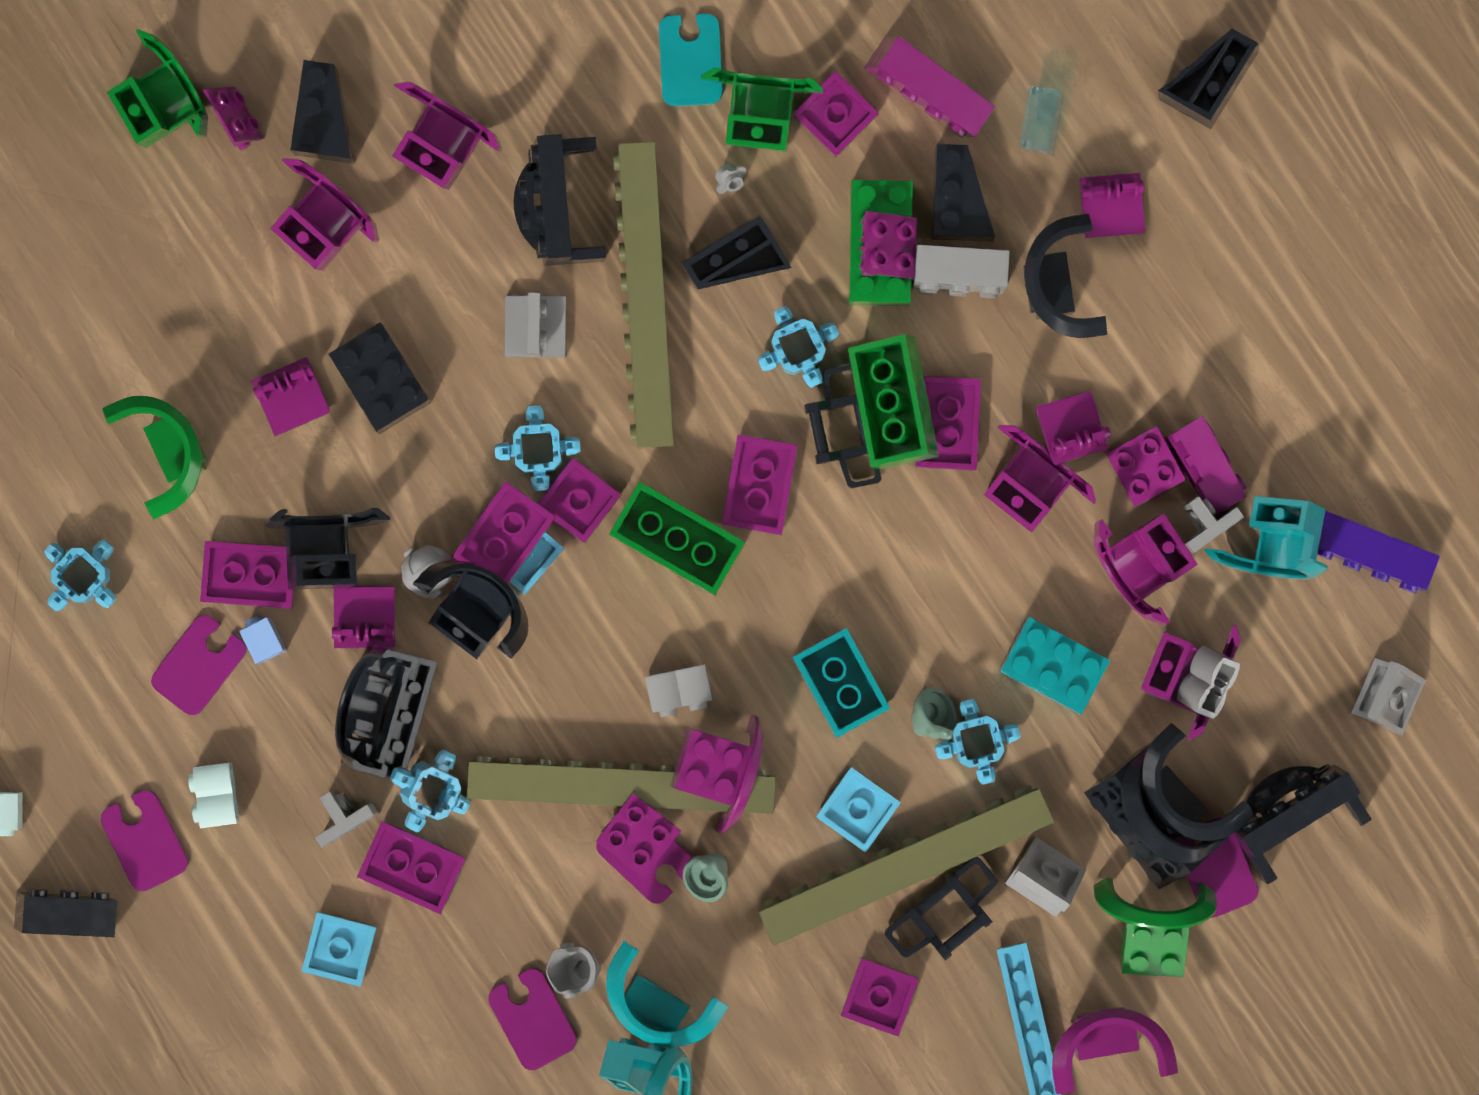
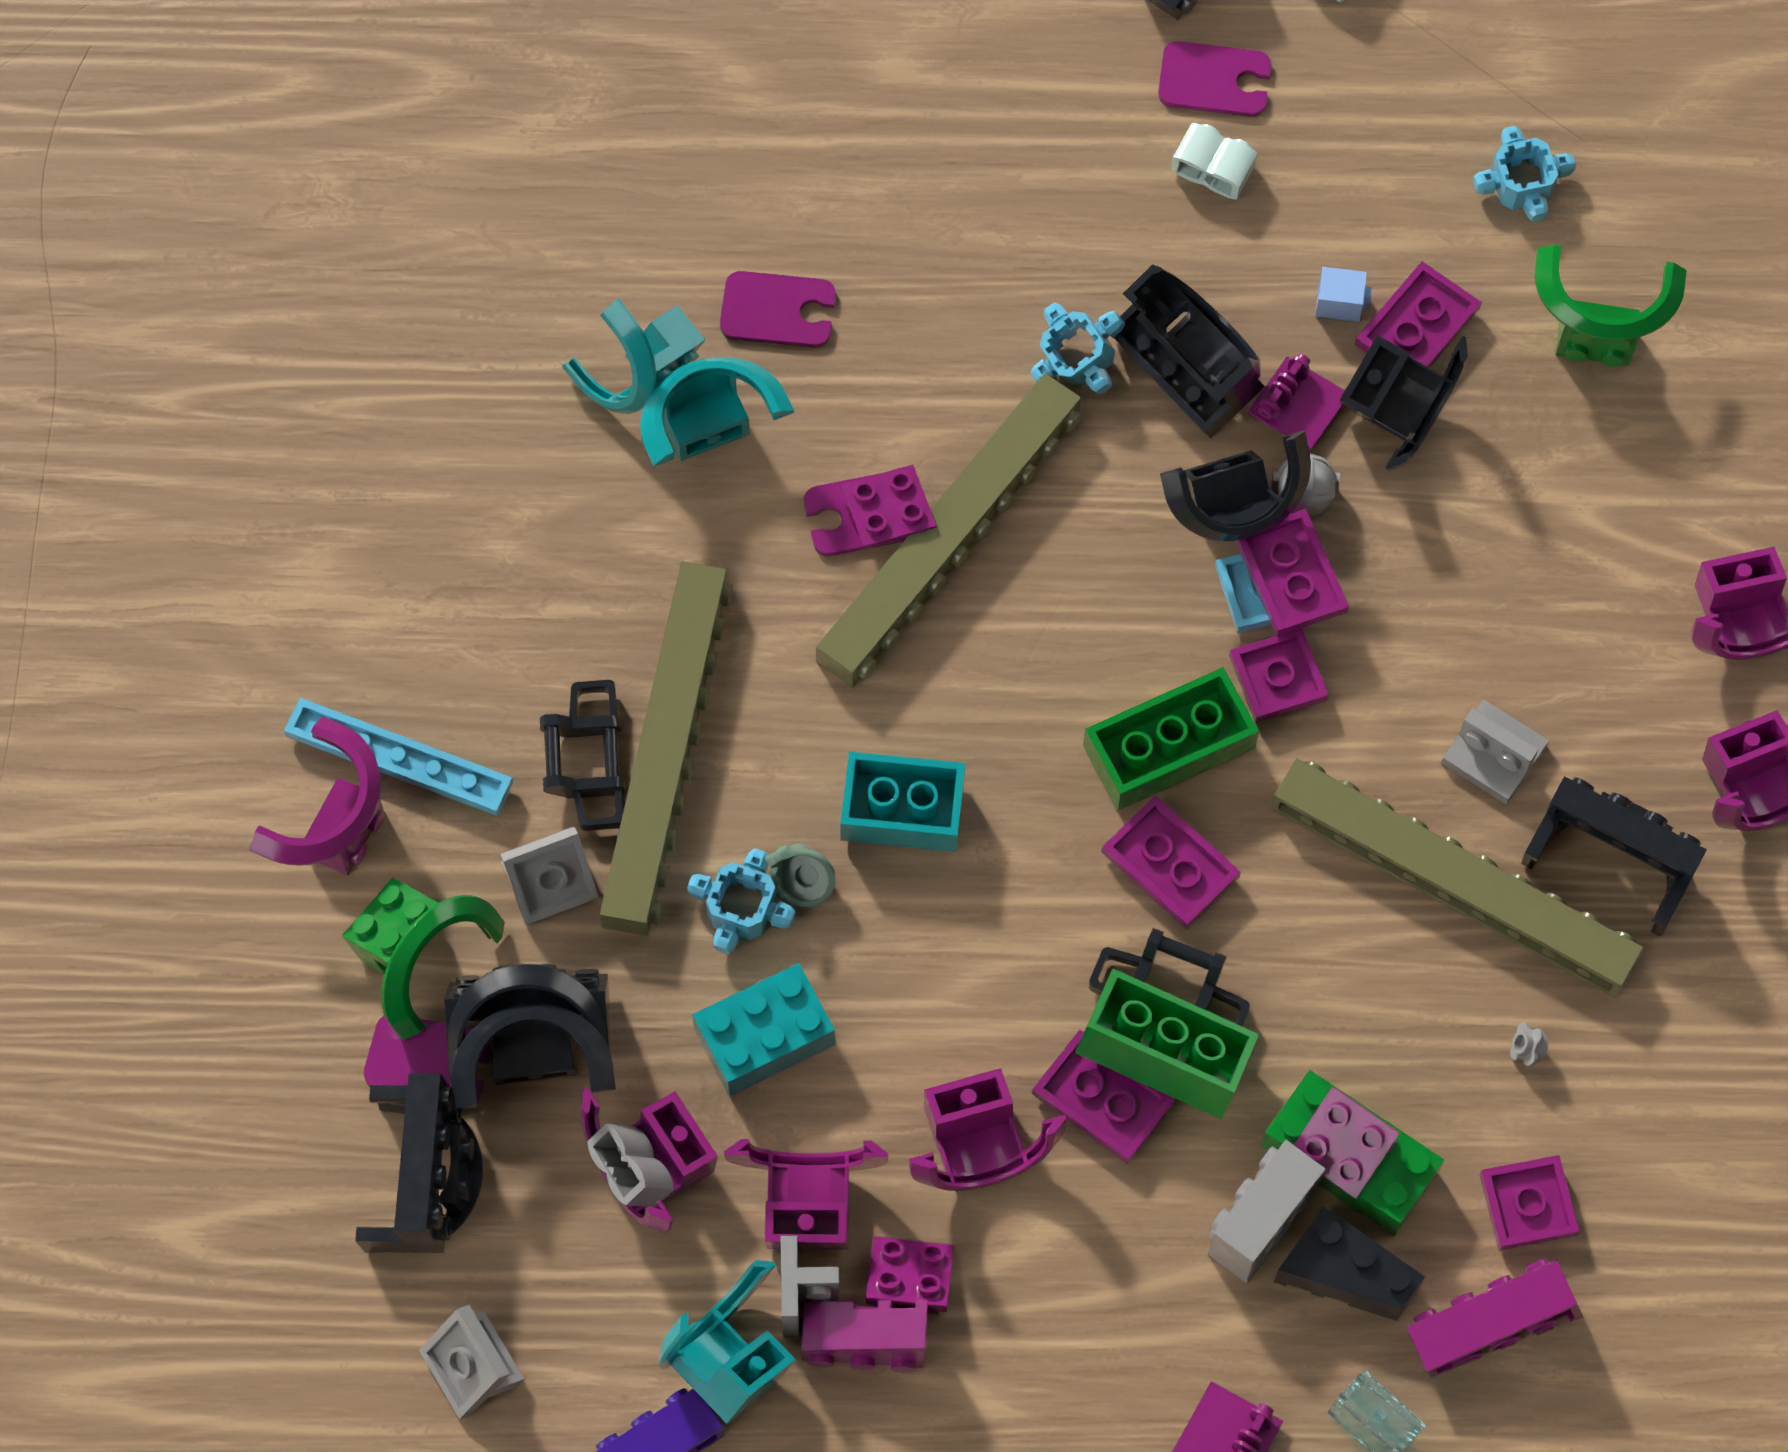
camera: 125 degrees right, 20 degrees down
(192, 671) = (1354, 218): magenta piece -> none
(290, 396) = (1579, 473): magenta hinge -> none
(338, 808) = (1112, 250): light grey bracket -> none
(339, 949) = (979, 178): medium azure plate -> none
(379, 378) = (1541, 563): black brick -> none
(411, 867) = (1011, 289): magenta plate -> none
(535, 416) = (1376, 647): medium azure piece -> none
(572, 970) = (799, 365): light grey cap -> none
(679, 689) = (1010, 646): light grey brick -> none
(686, 61) = (1681, 1088): teal piece -> none
(706, 877) = (798, 550): sand green hat -> none
(720, 769) = (900, 614): magenta piece -> none
(736, 256) = (1436, 995): black wedge -> none
(760, 107) = (1585, 1121): green piece -> none
(827, 333) = (1292, 1022): medium azure piece -> none
(858, 809) = (758, 739): medium azure plate -> none
(879, 996) = (551, 636): magenta plate -> none
(1050, 284) = (1183, 1295): black piece -> none
(1072, 428) = (1007, 1222): magenta hinge -> none

